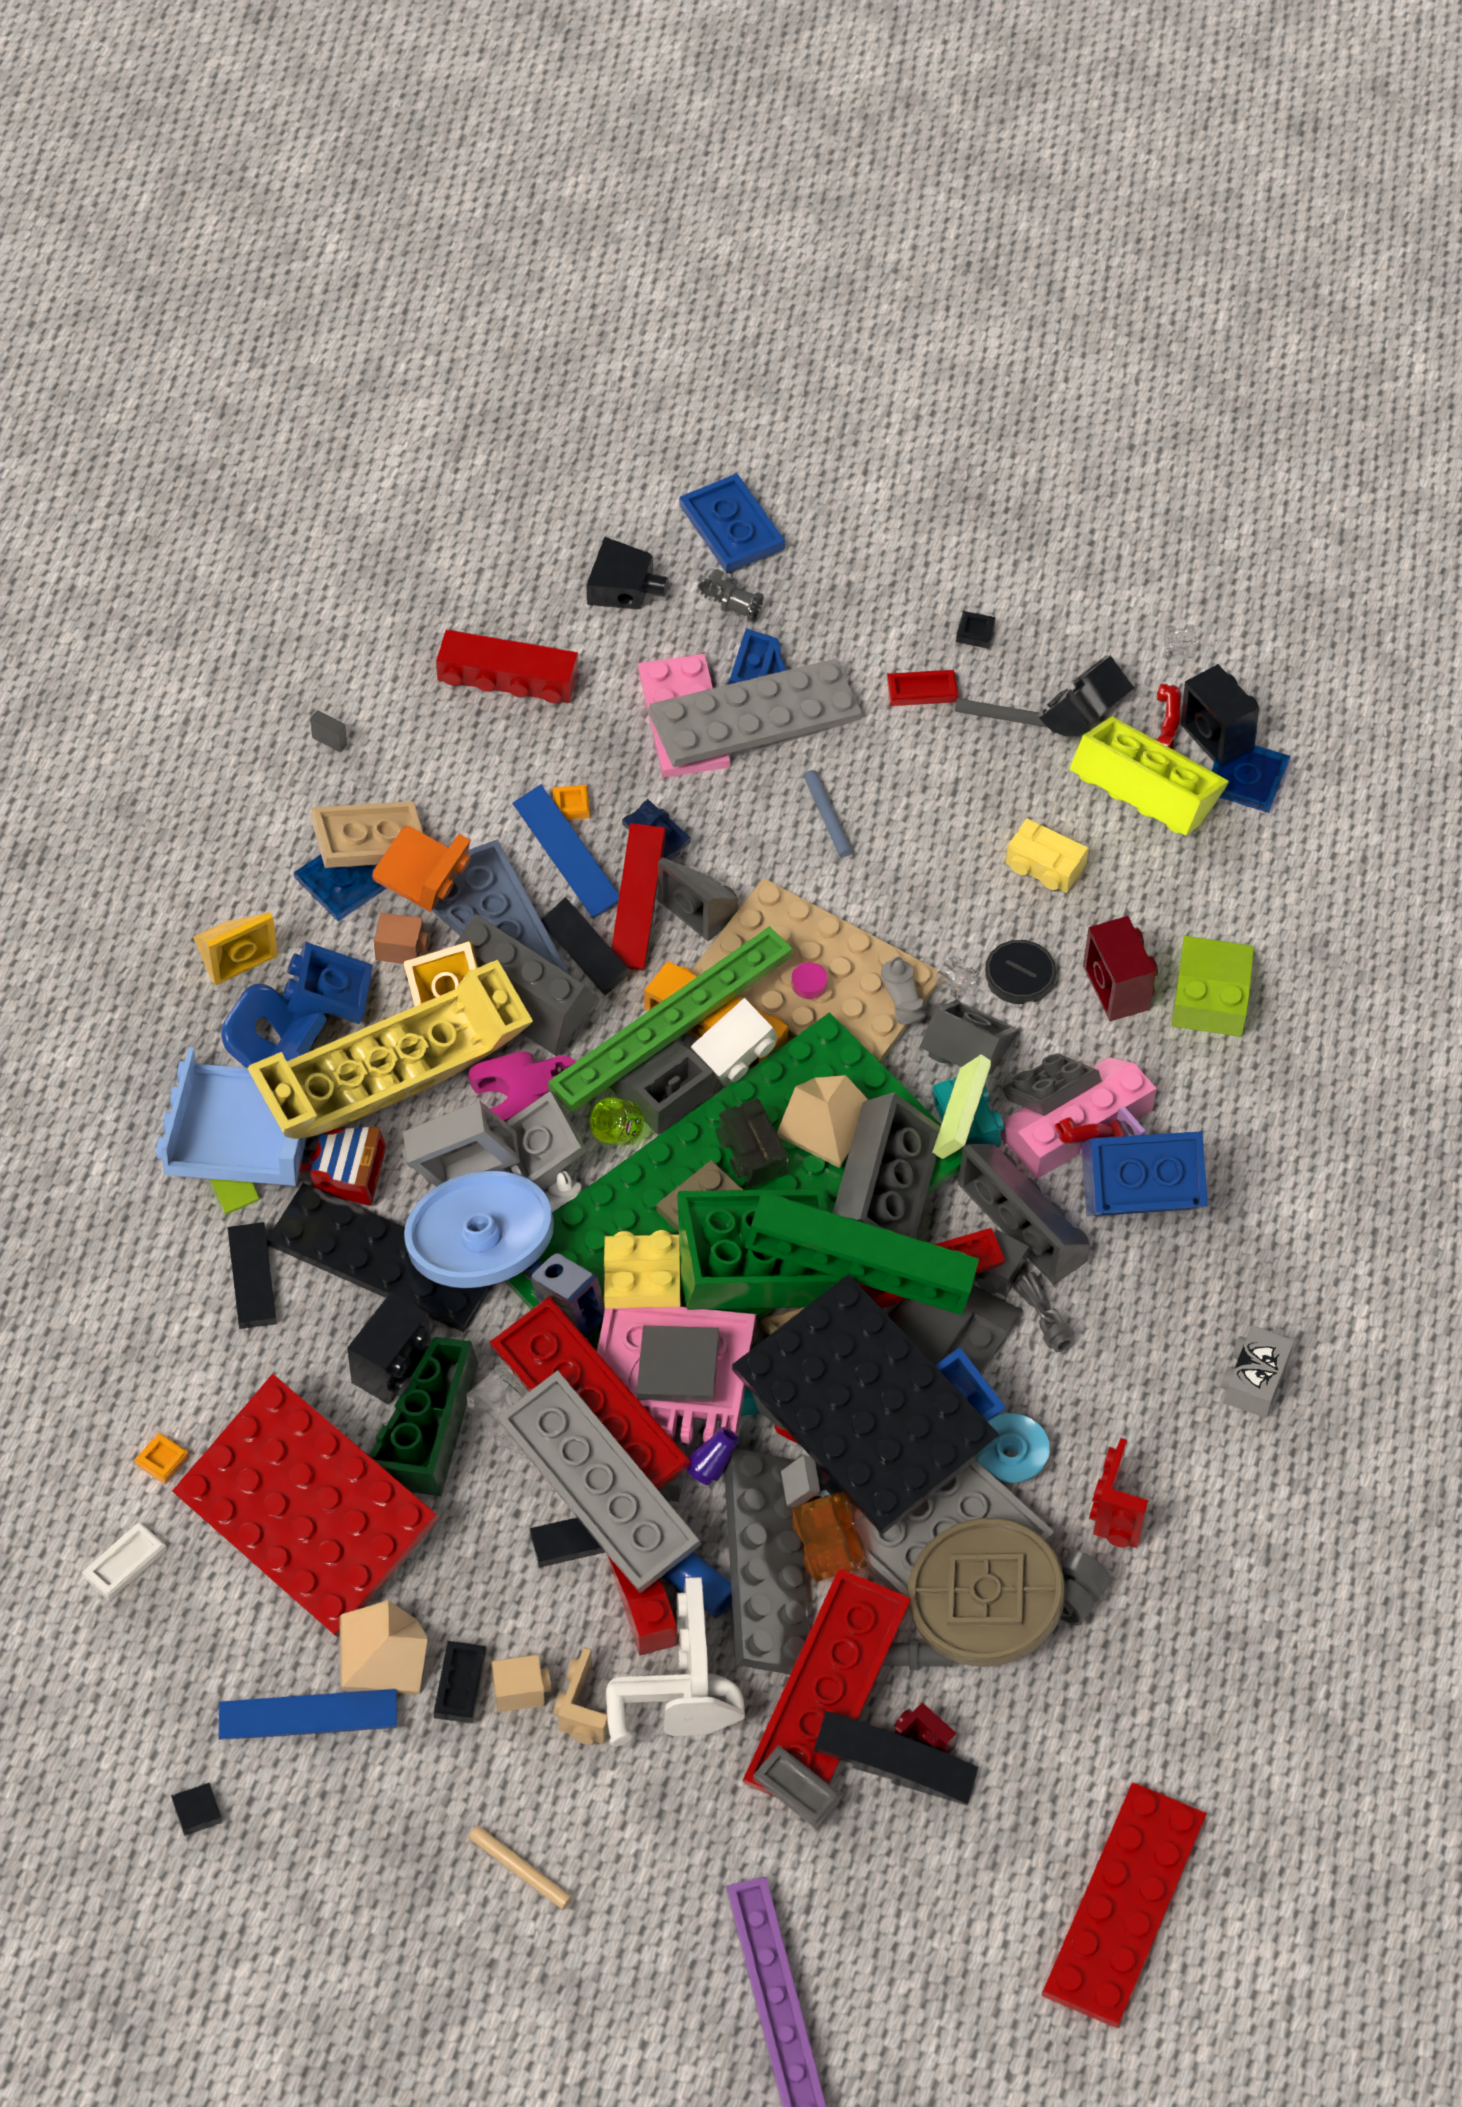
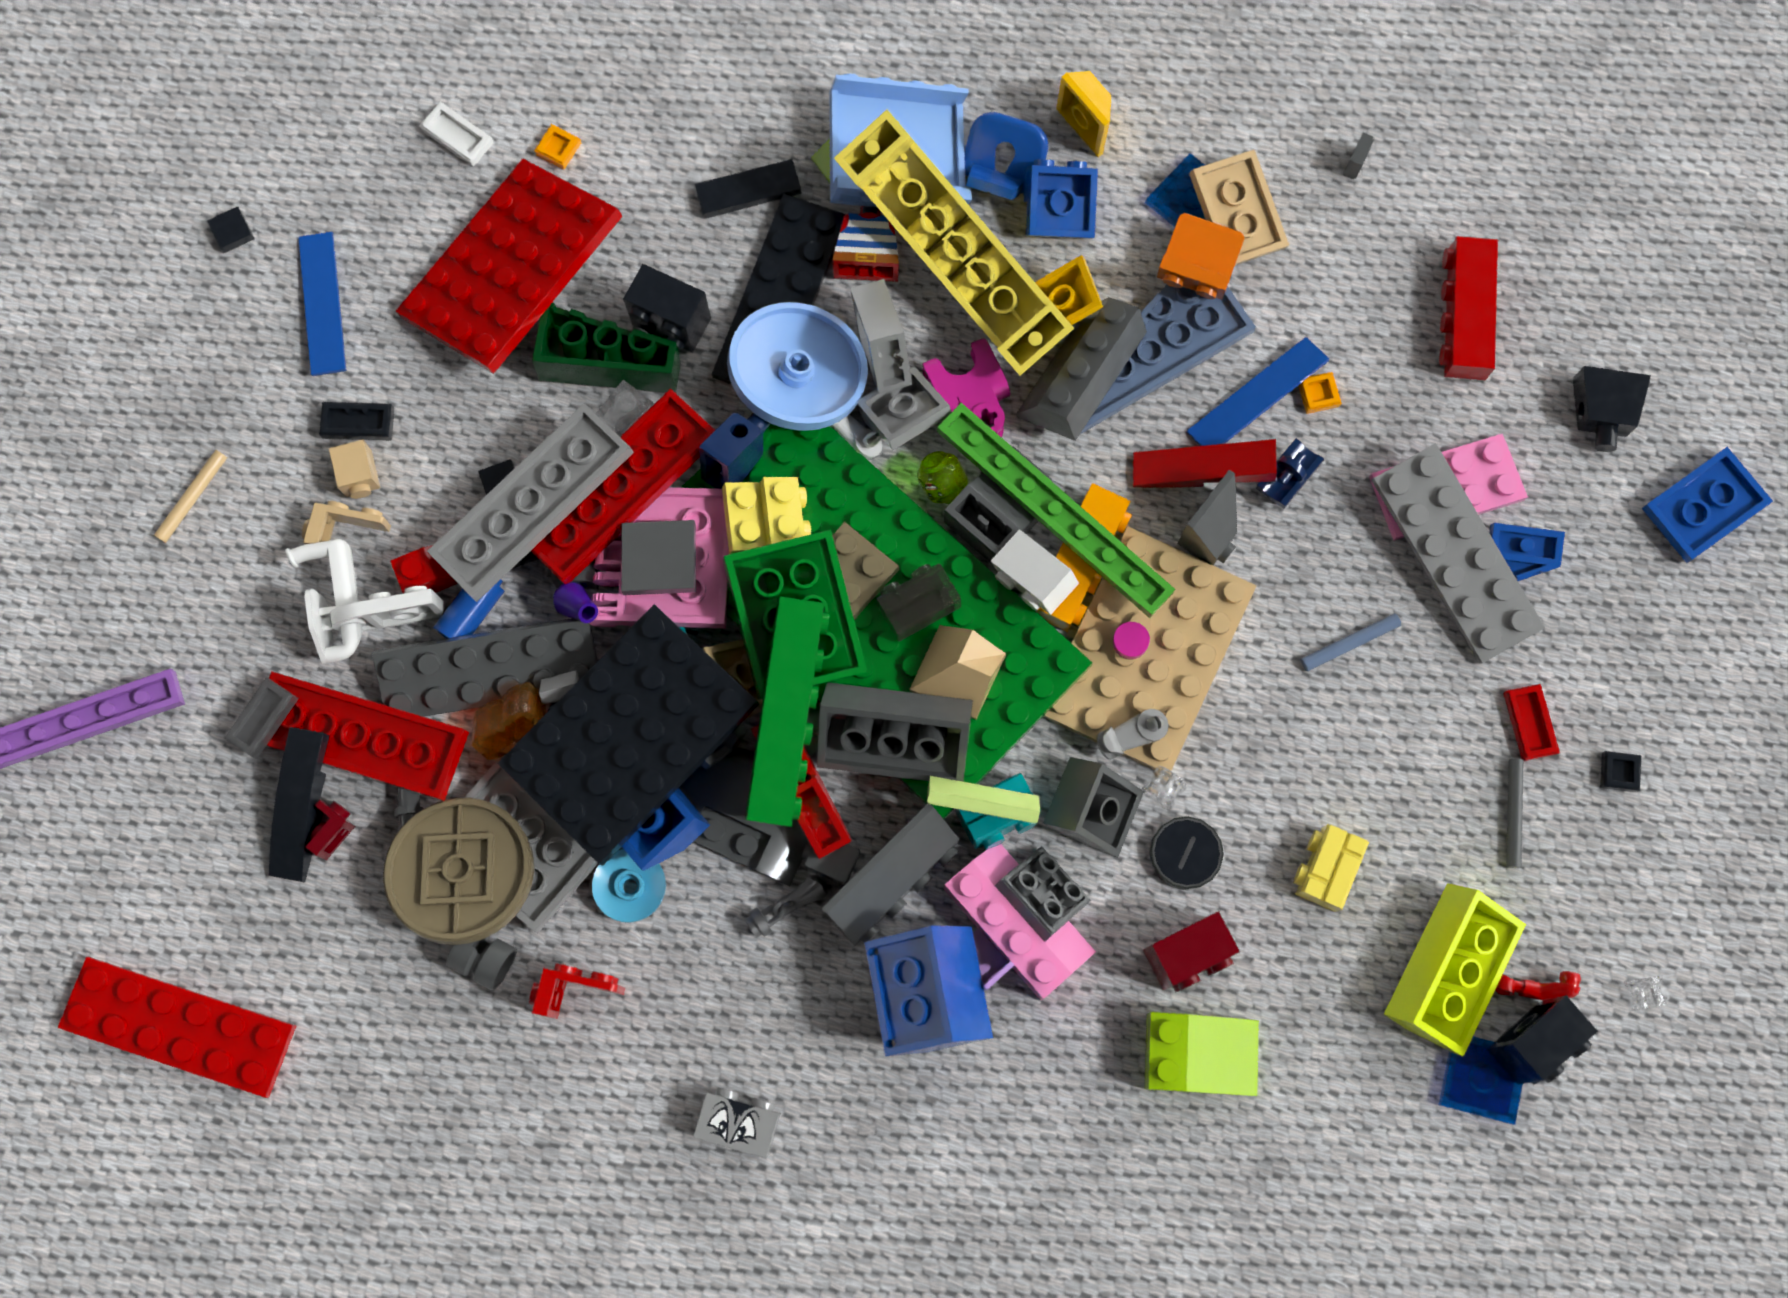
camera: 85 degrees right, 20 degrees up
(381, 1649) = (378, 351): tan slope -> none
(399, 938) = (1125, 256): nougat brick -> none
(585, 946) = (1146, 426): black tile -> none
(729, 594) = (1606, 516): dark grey connector -> none
(1073, 1135) = (979, 940): red arm -> none
(1094, 693) = (1533, 889): black brick -> none

